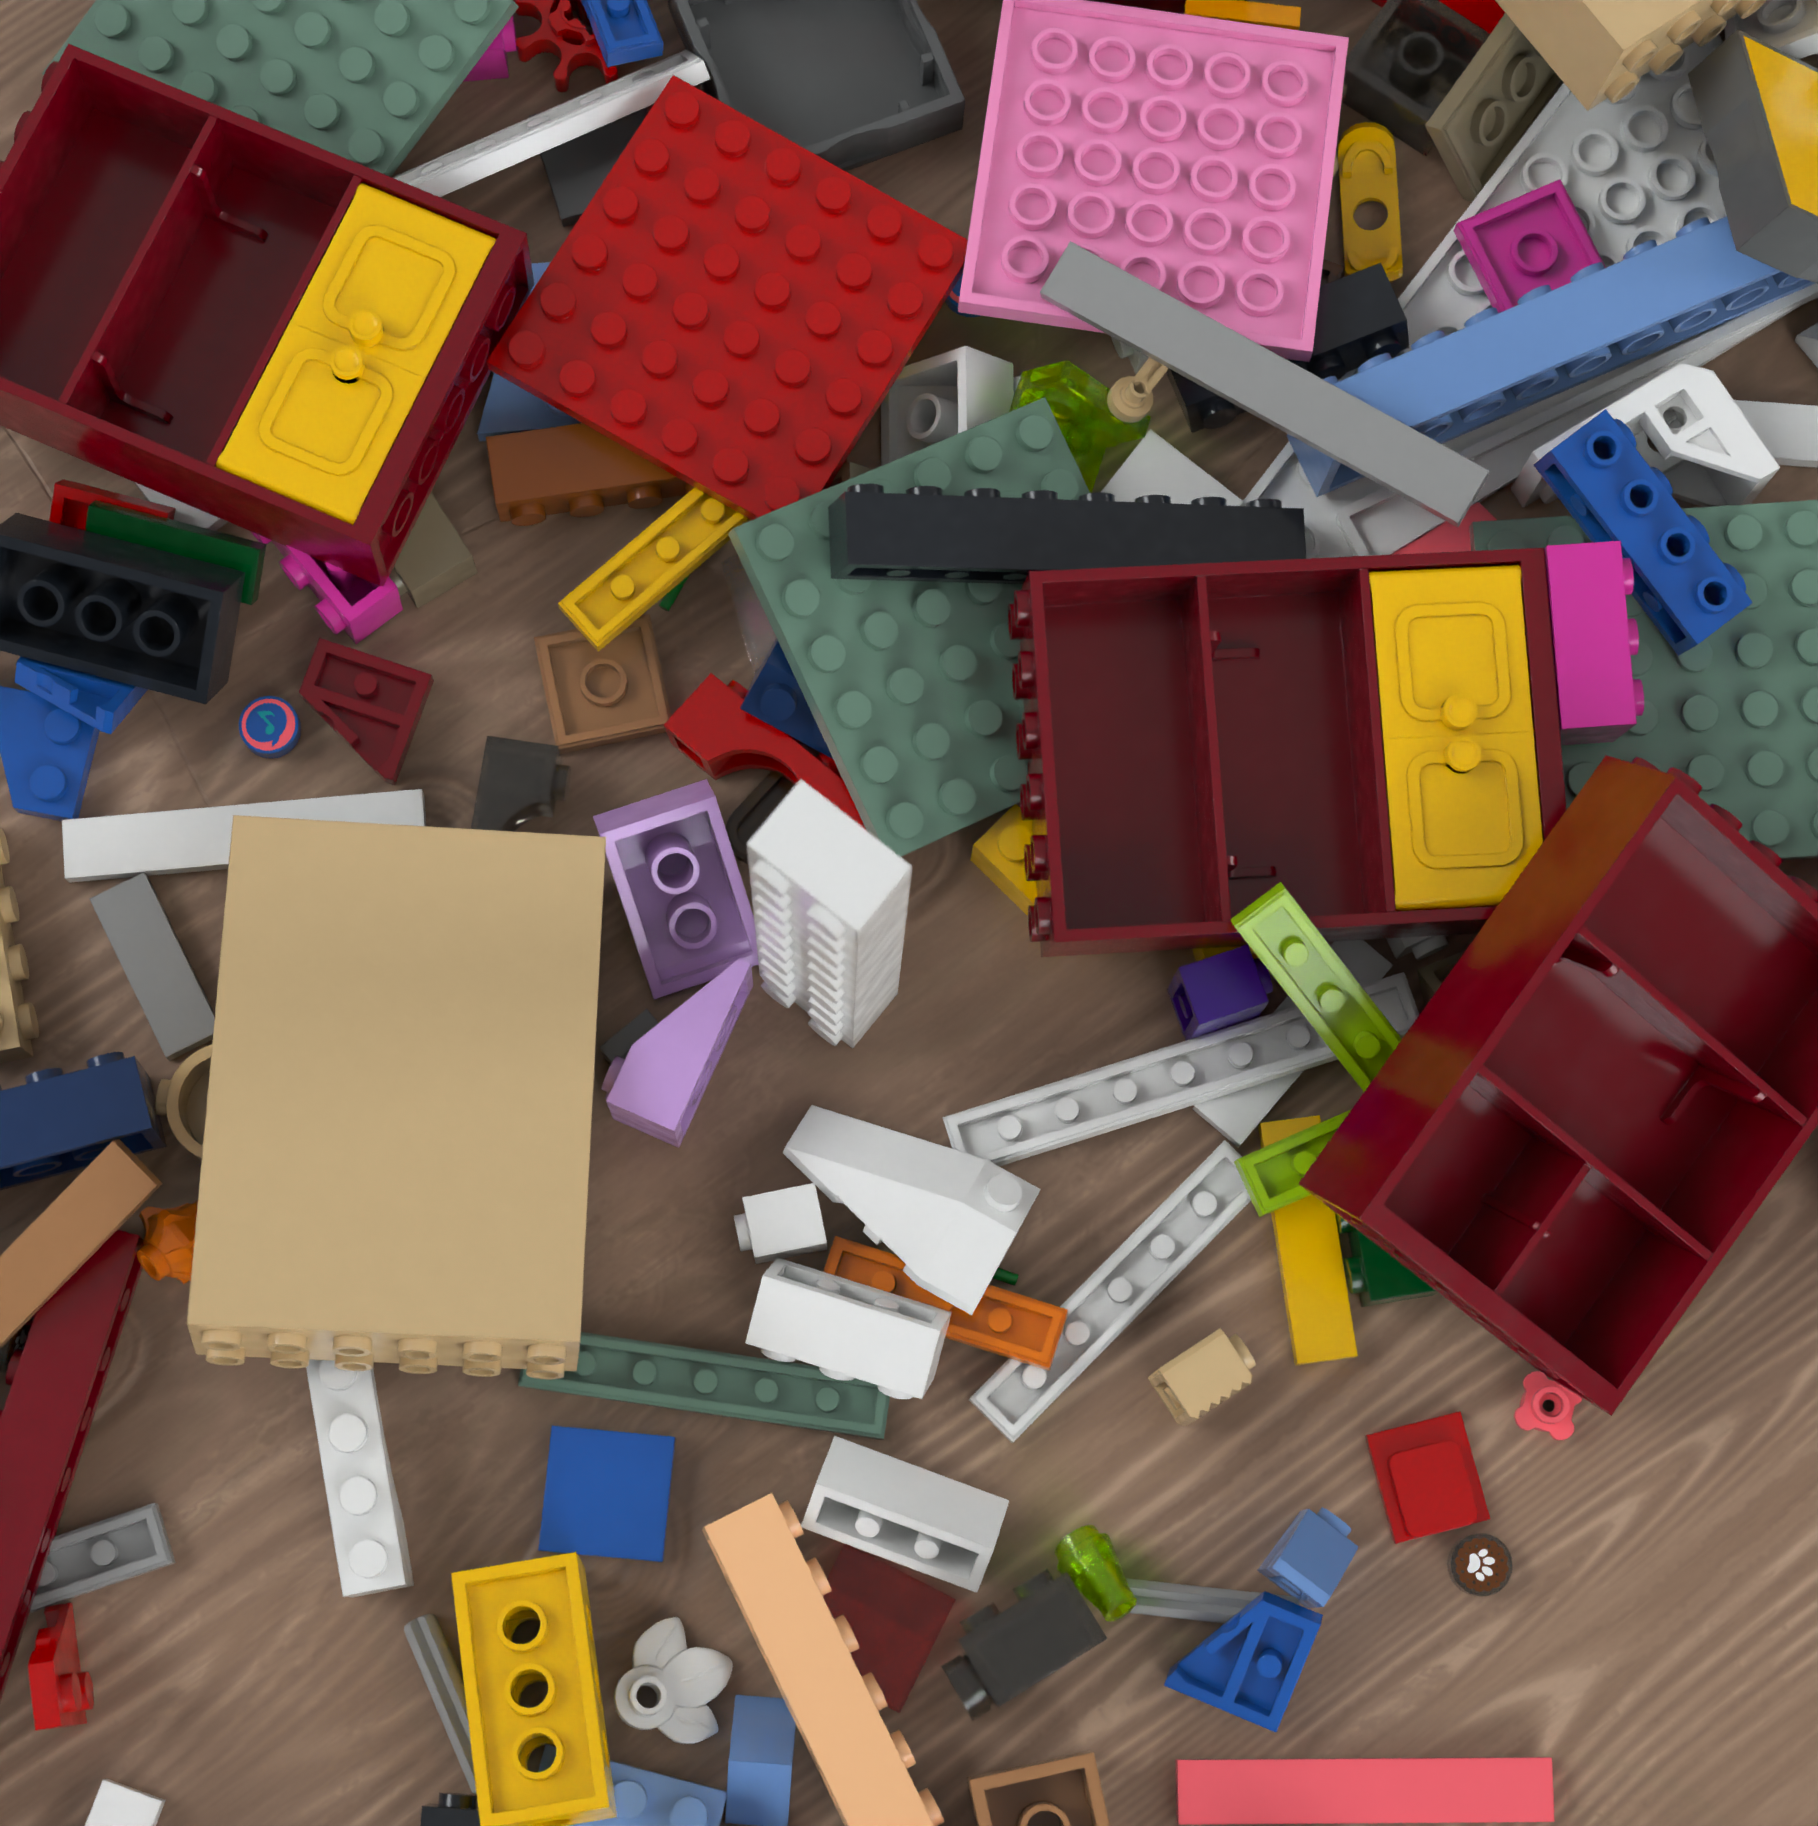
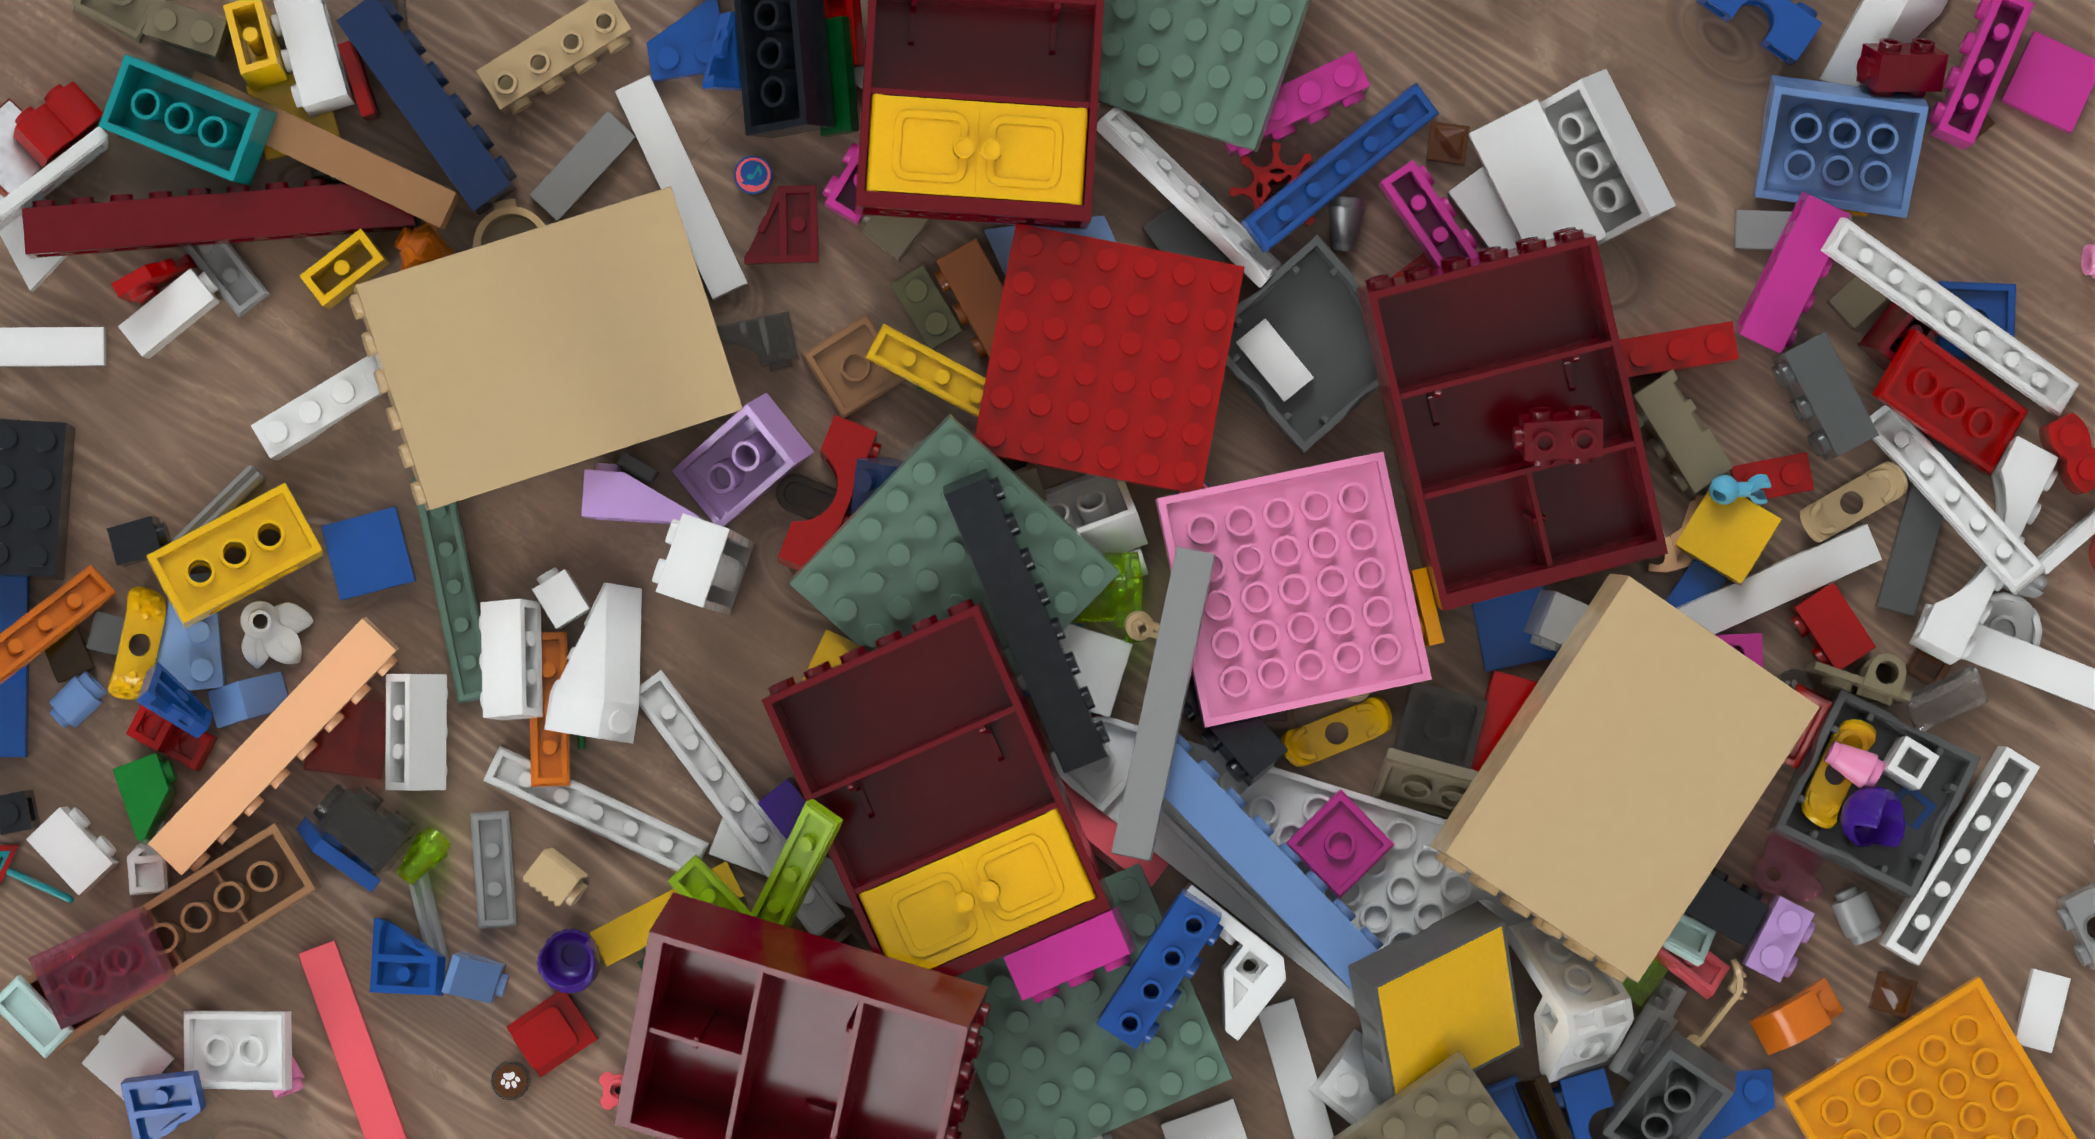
camera: 75 degrees right, 10 degrees up
(122, 1664) = (170, 312): none -> white brick
(163, 1368) = (343, 268): none -> yellow brick
(555, 553) = (926, 308): none -> olive piece
(820, 106) = (1274, 360): none -> white tile
(1039, 1707) = (337, 855): none -> blue wing
(1152, 1475) = (494, 869): none -> light grey tile
(1333, 1404) = (569, 961): none -> dark purple hair

